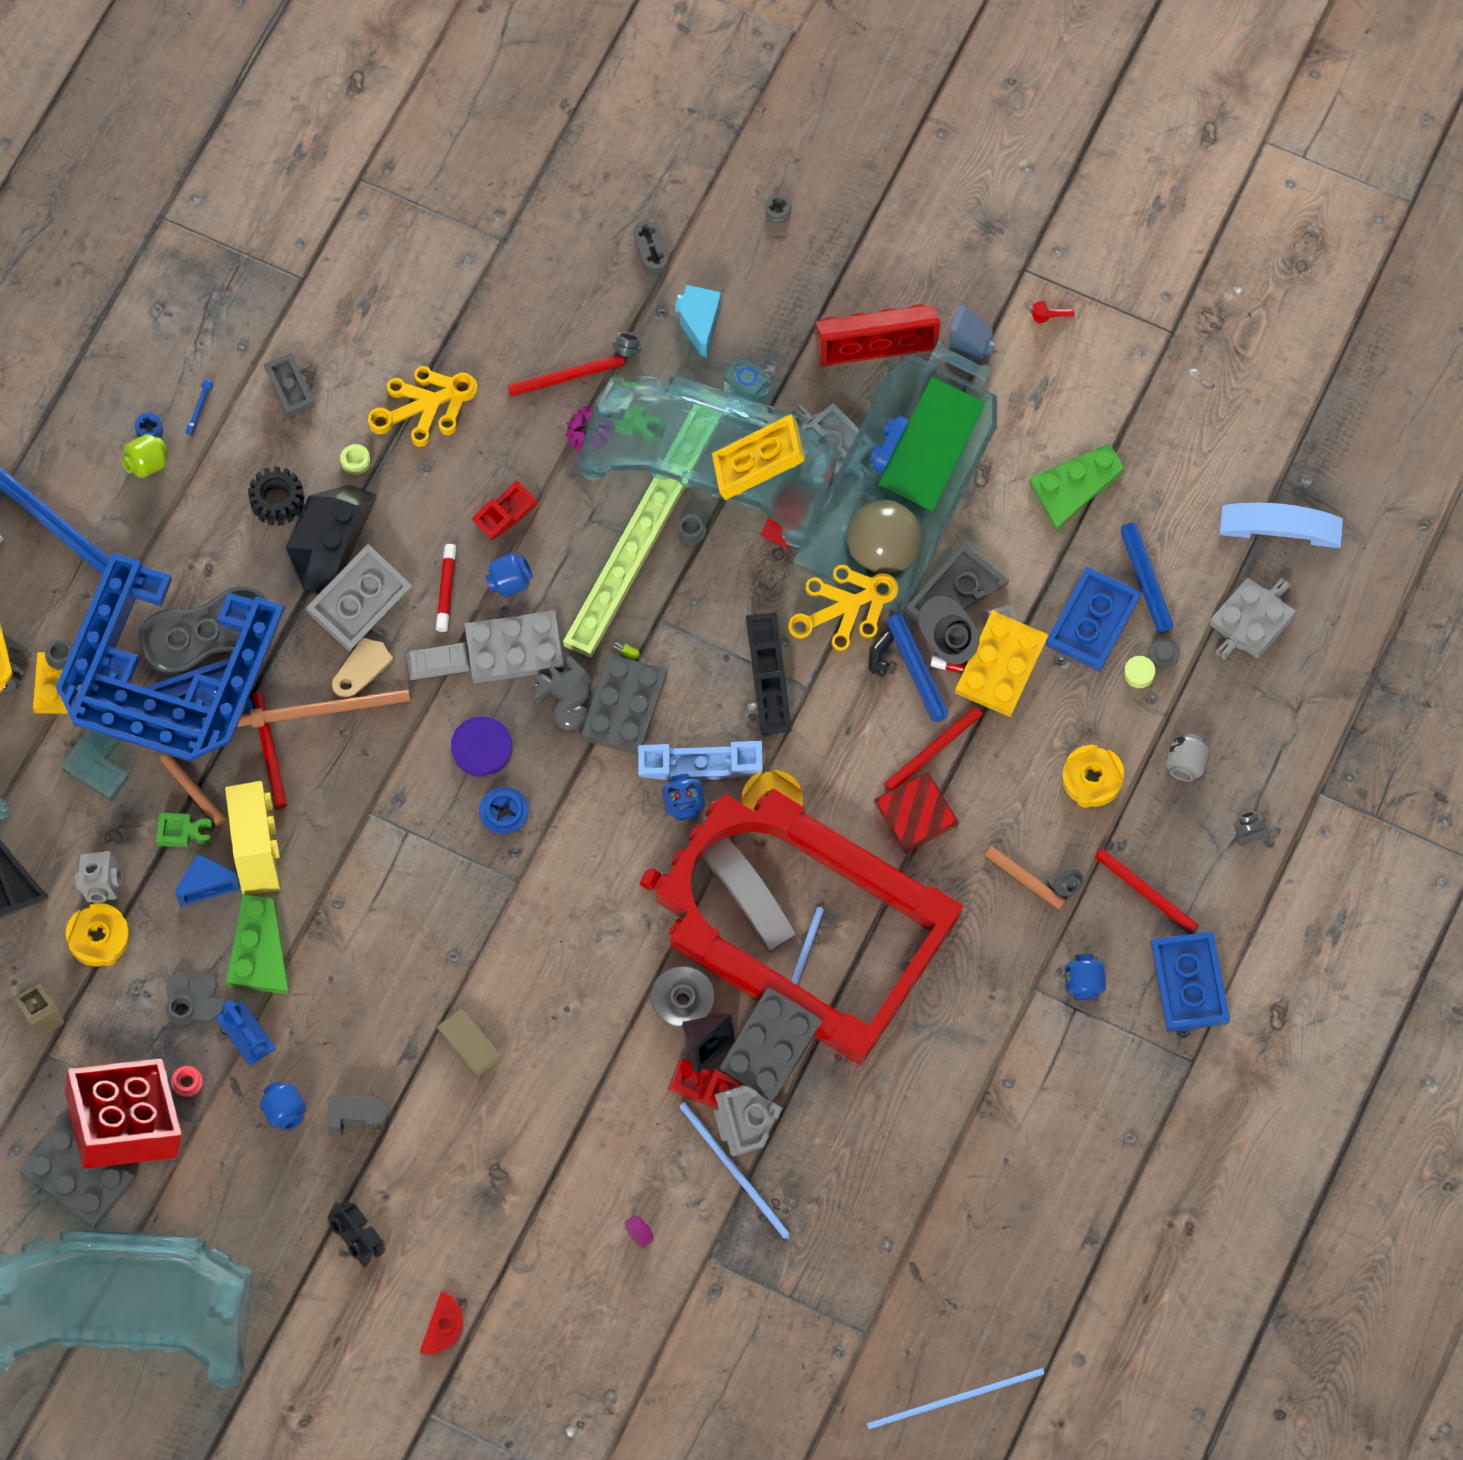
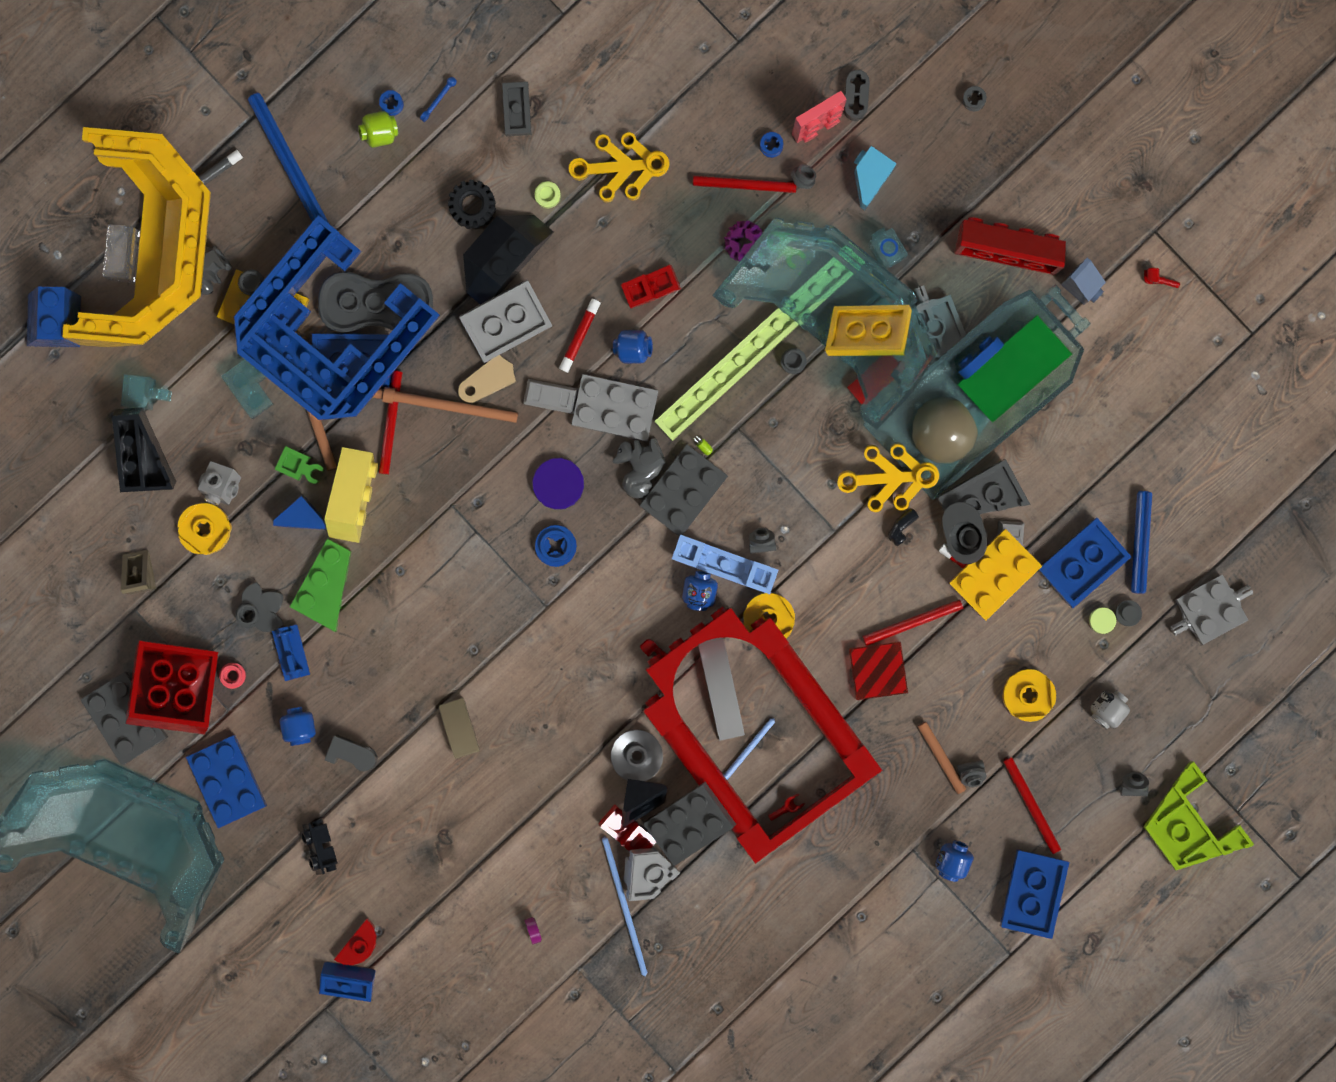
camera: 25 degrees right, 20 degrees up
(221, 1201) = (226, 781): none -> blue plate
(445, 1374) = (347, 981): none -> blue slope
(587, 330) = (767, 138): none -> blue bush
(619, 273) = (822, 115): none -> coral plate
(731, 724) = (762, 541): none -> dark grey plate
(768, 673) = (807, 510): black slope -> none
(874, 992) = (789, 806): none -> red hand
(917, 667) = (927, 549): blue axle -> none
(1074, 483) = (1118, 437): bright green wing -> none
(1282, 521) = (1268, 537): light blue slope -> none
(1325, 857) = (1182, 832): none -> lime wing

